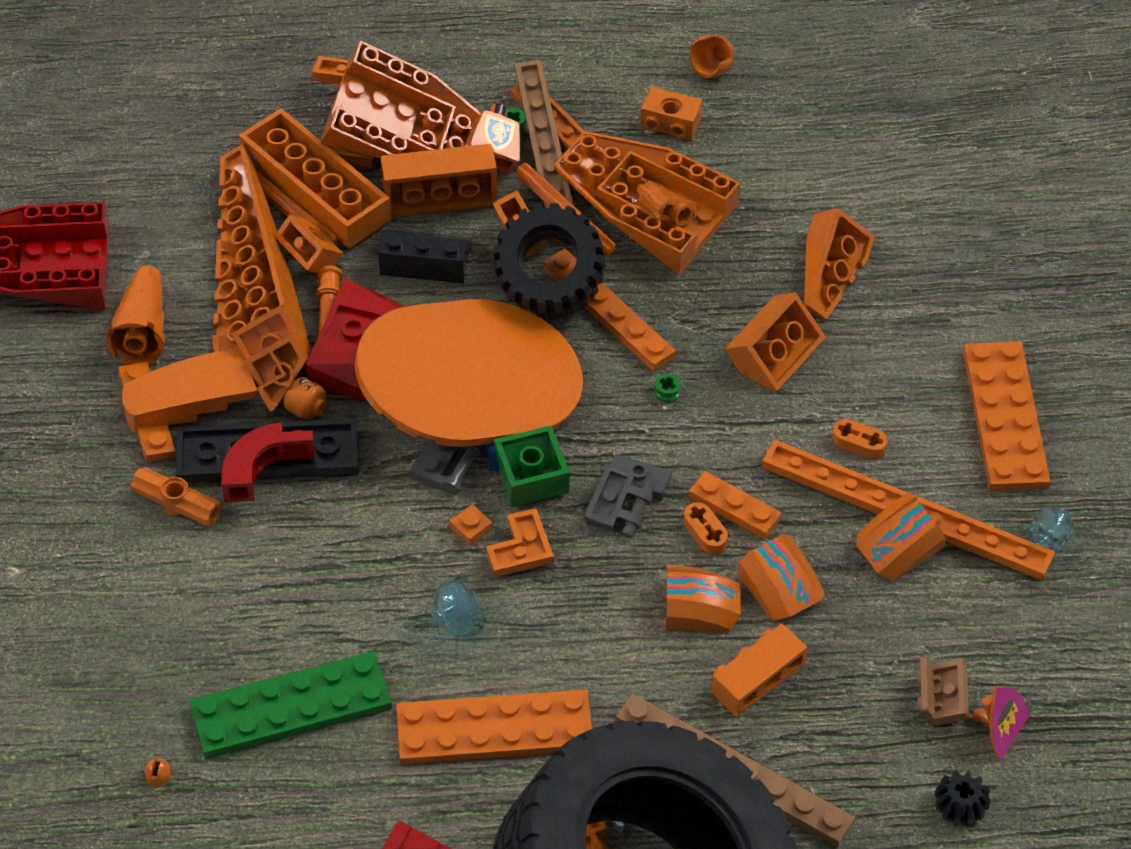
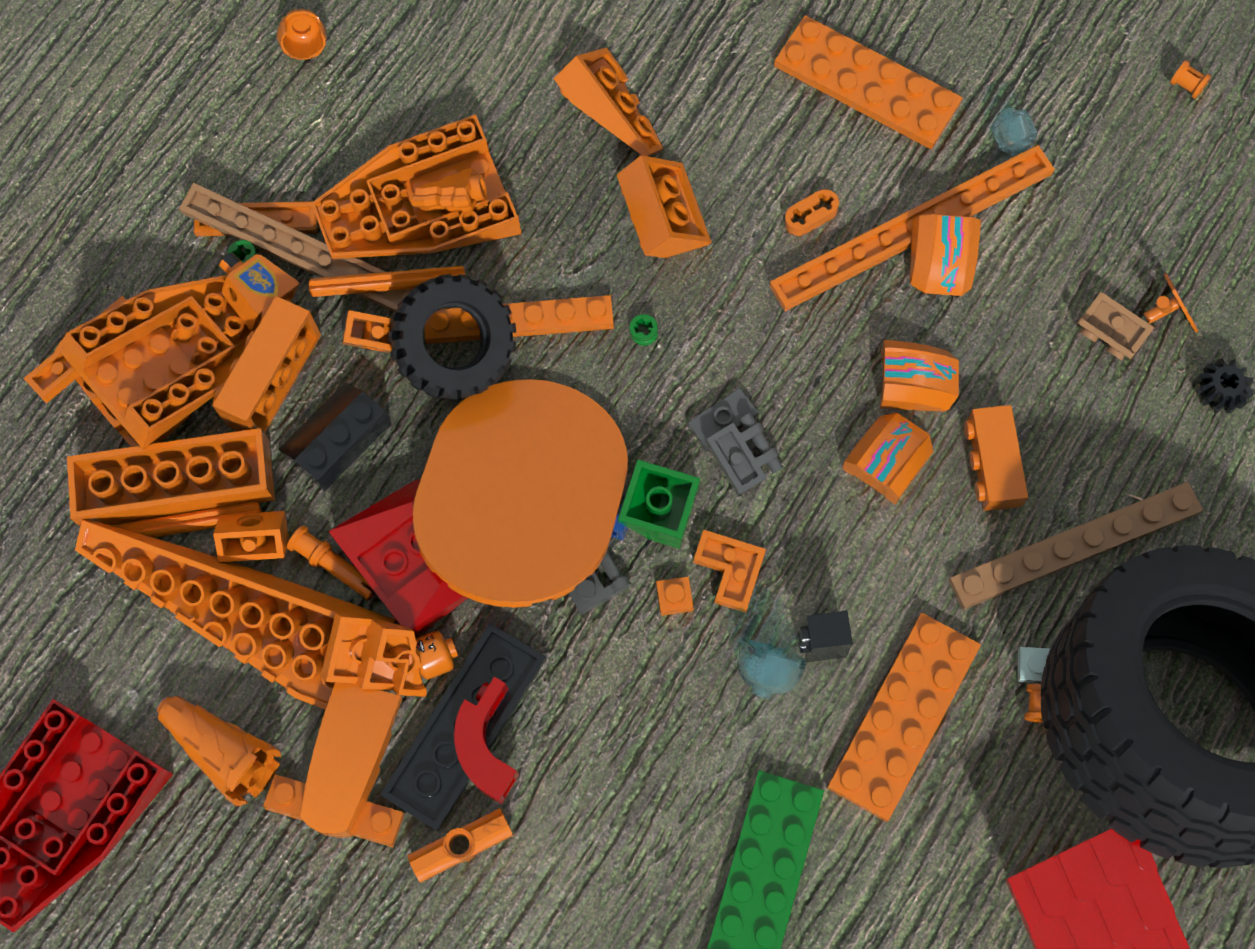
camera: 50 degrees left, 20 degrees up
(511, 626) = (825, 636): none -> black brick
(671, 113) = (342, 100): orange brick -> none
(709, 525) = (815, 394): orange beam -> none
(735, 505) = (808, 360): orange plate -> none

